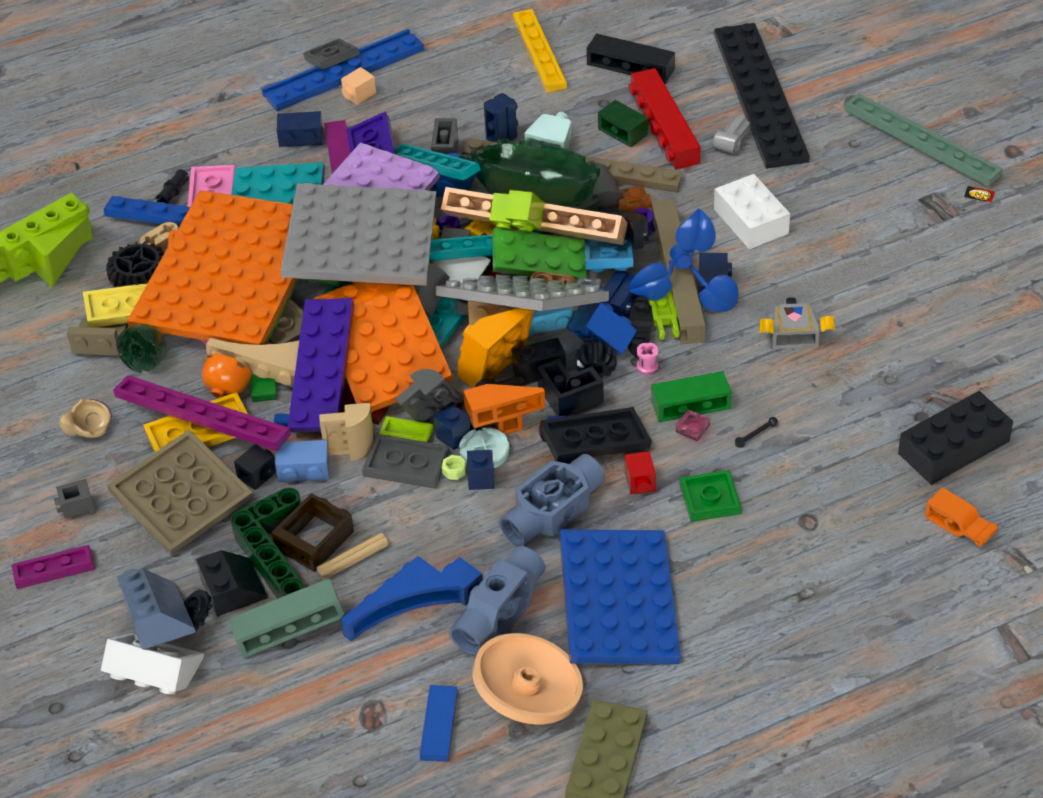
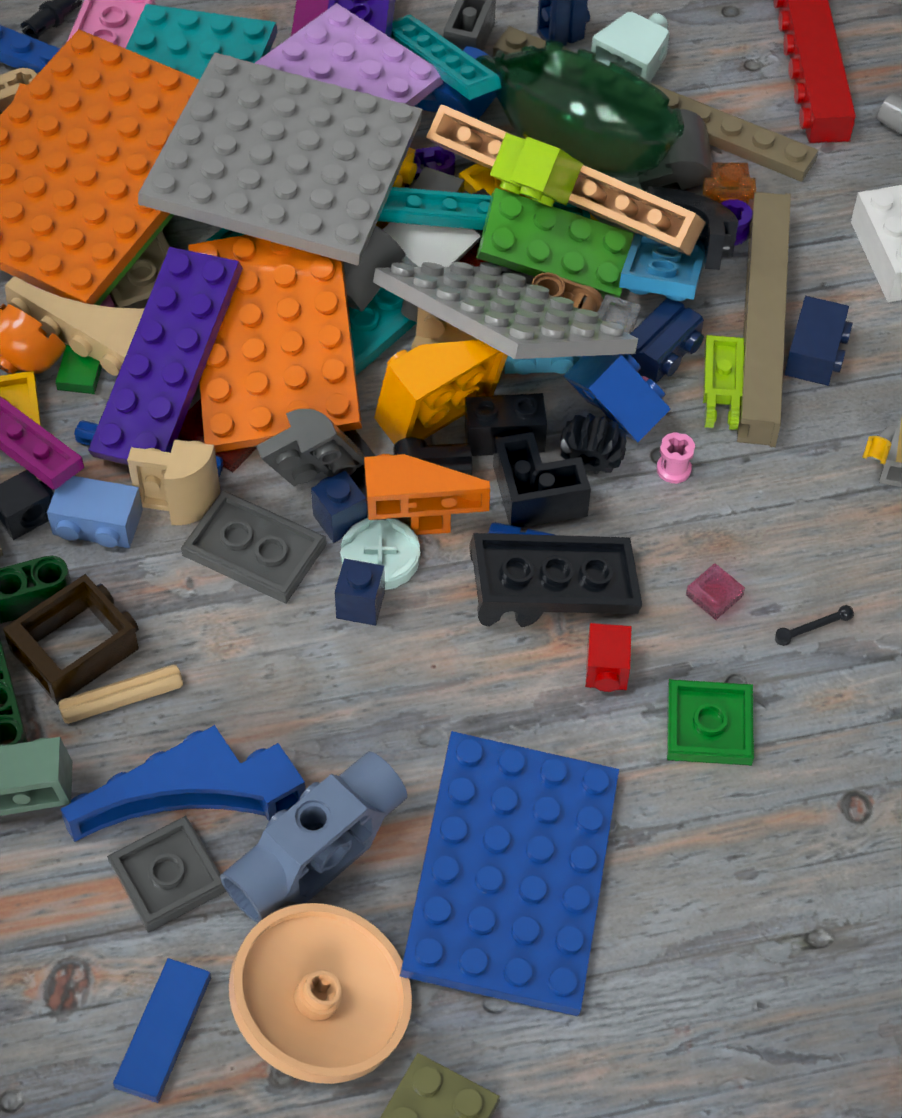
camera: 10 degrees right, 10 degrees up
(407, 429) = (271, 493): lime tile -> none
(413, 644) = (167, 873): none -> dark grey tile
(454, 467) = (321, 576): yellowish green tile -> none
(551, 499) = (455, 672): sand blue brick -> none
(623, 123) = (748, 51): dark green brick -> none
(641, 320) = (681, 395): black piece -> none
(697, 393) = (726, 536): green brick -> none
(698, 234) = (795, 274): blue plant -> none

